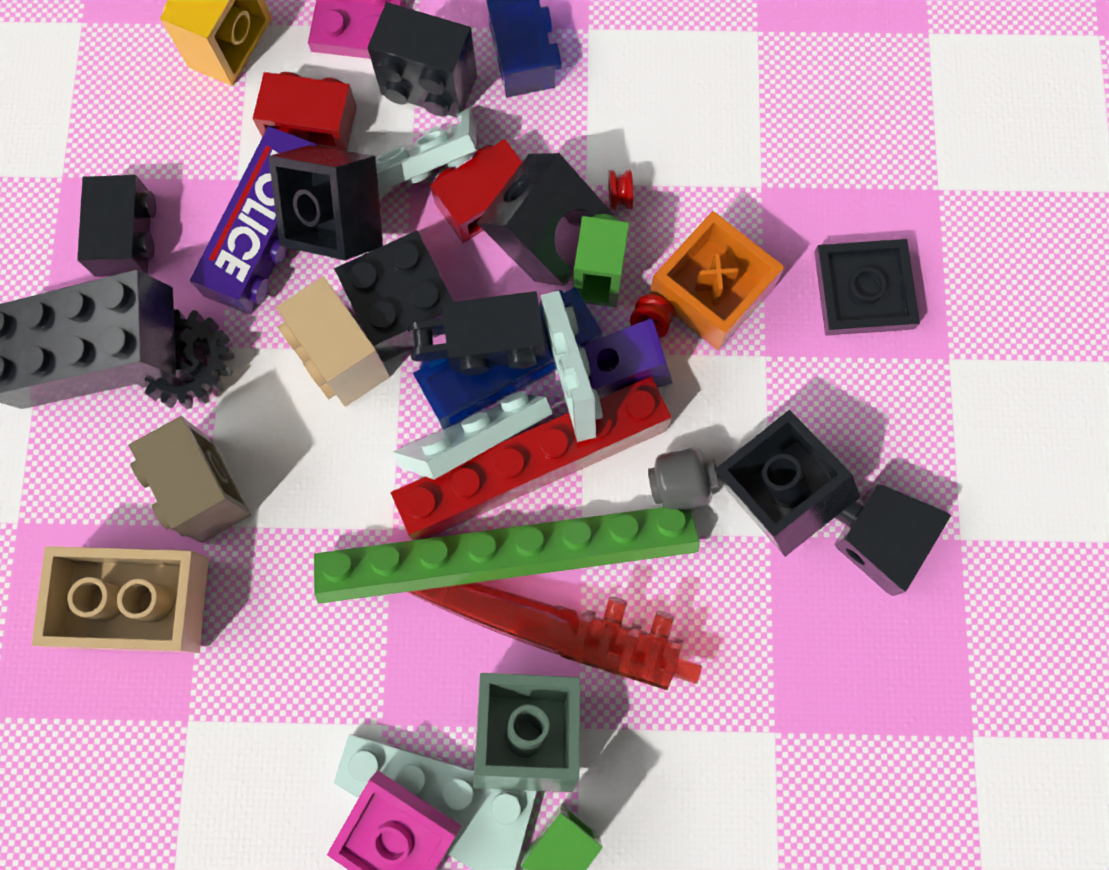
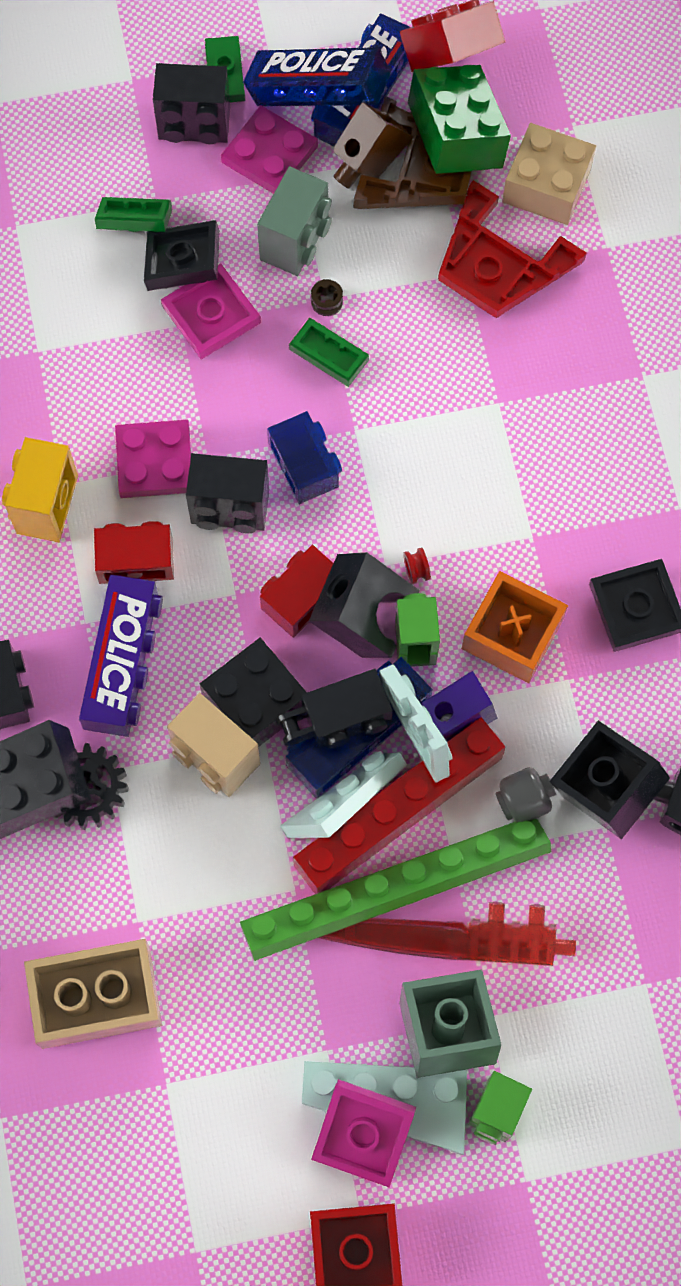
camera: 15 degrees left, 5 degrees down
(187, 480) = (126, 883): dark tan brick -> none
(326, 201) = (181, 629): black brick -> none
(429, 152) = (252, 566): light aqua wing -> none
(656, 308) = (467, 661): red bush -> none

